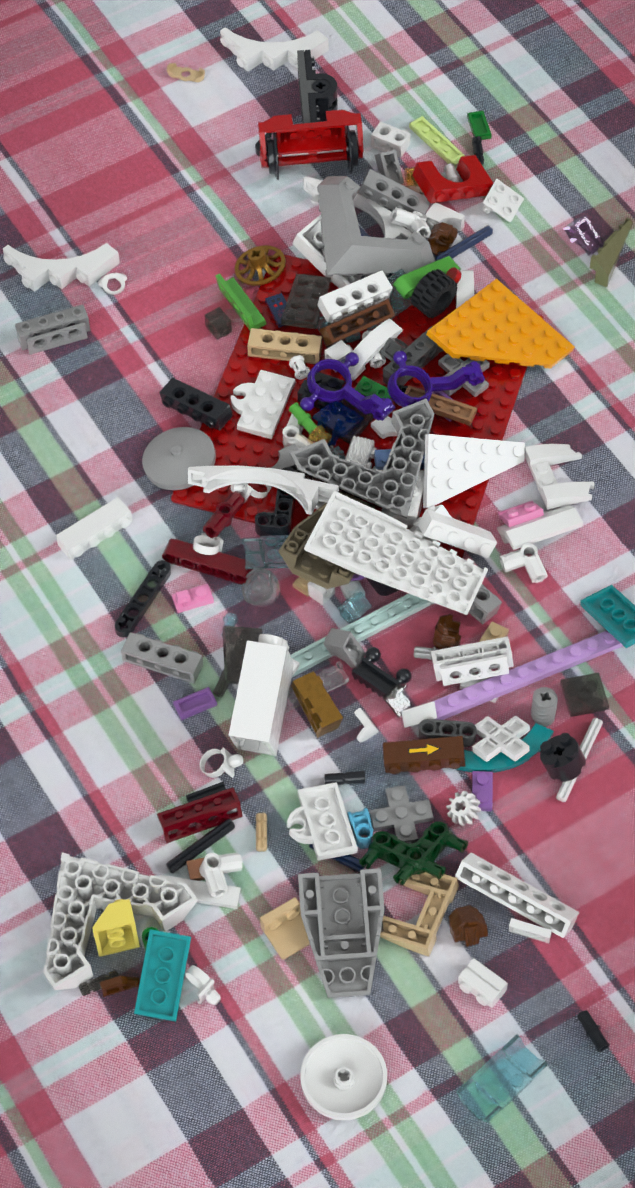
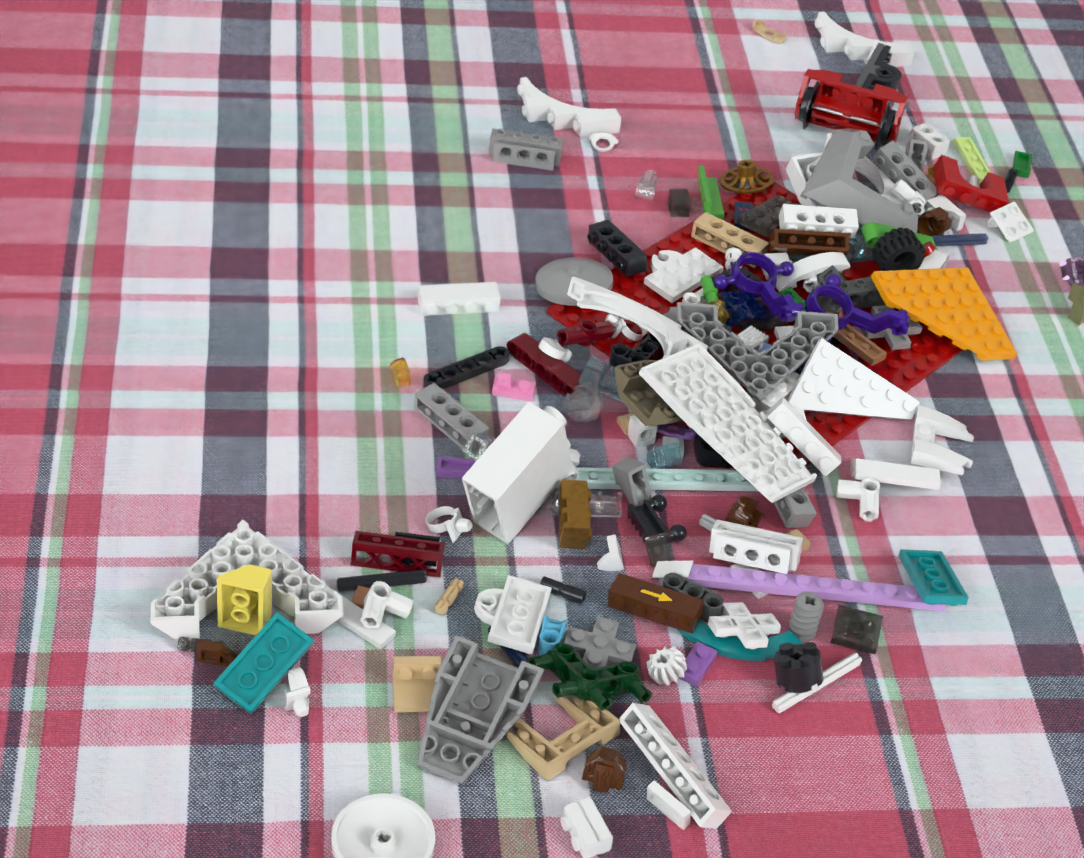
camera: 20 degrees right, 15 degrees down
(92, 632) = (400, 372): none -> clear yellow brick
(181, 320) = (647, 186): none -> clear piece
(205, 676) = (477, 445): none -> clear brick
(521, 513) = (874, 454): bright pink plate -> none

